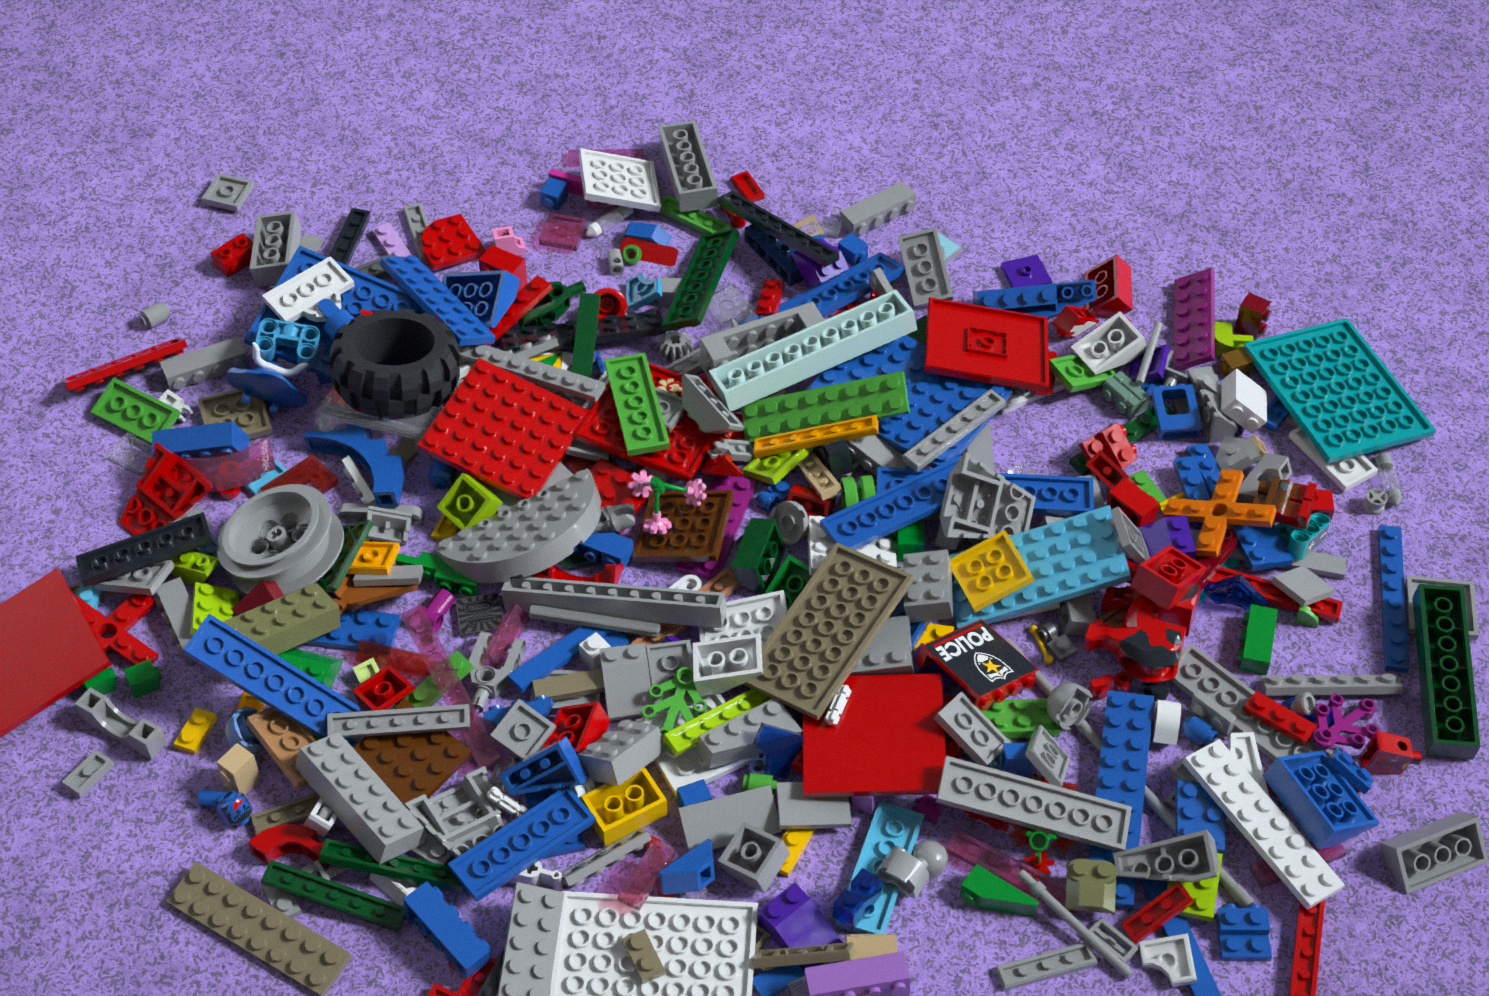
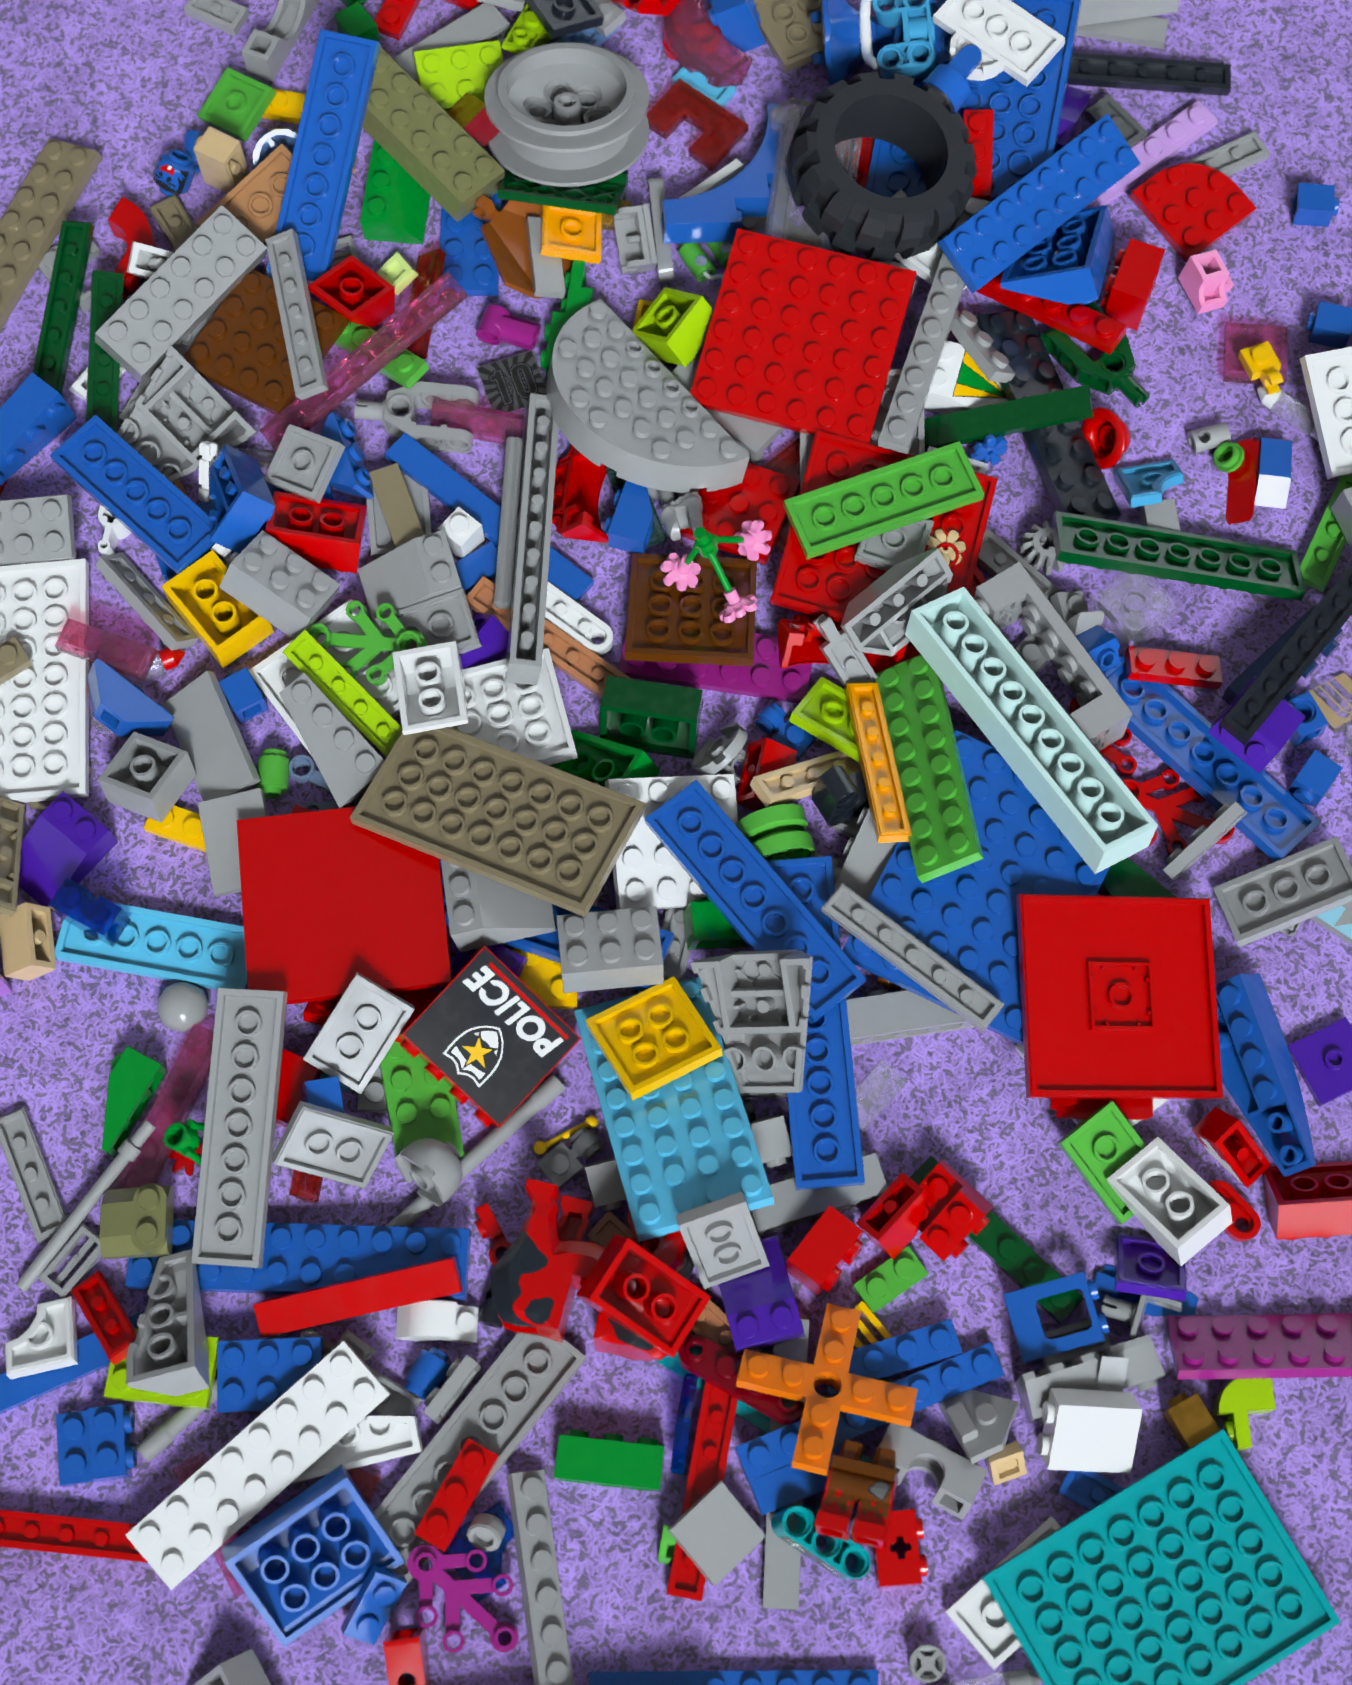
camera: 85 degrees right, 20 degrees up
(184, 762) = (236, 104): none -> bright green plate
(414, 495) = (698, 261): none -> bright green piece
(466, 188) = (1314, 204): none -> blue brick
(575, 225) = (1262, 363): none -> yellow plate
(779, 748) = (310, 780): clear blue tile -> none
(837, 705) = (377, 845): white axle -> none
(904, 871) = (139, 967): light grey cylinder -> none
(1125, 395) = (1083, 1235): sand green brick -> none
(1148, 353) = (1165, 1265): light grey bar -> none
(1152, 755) = (358, 1297): none -> red tile
(1253, 316) = (1297, 1446): dark red brick -> none

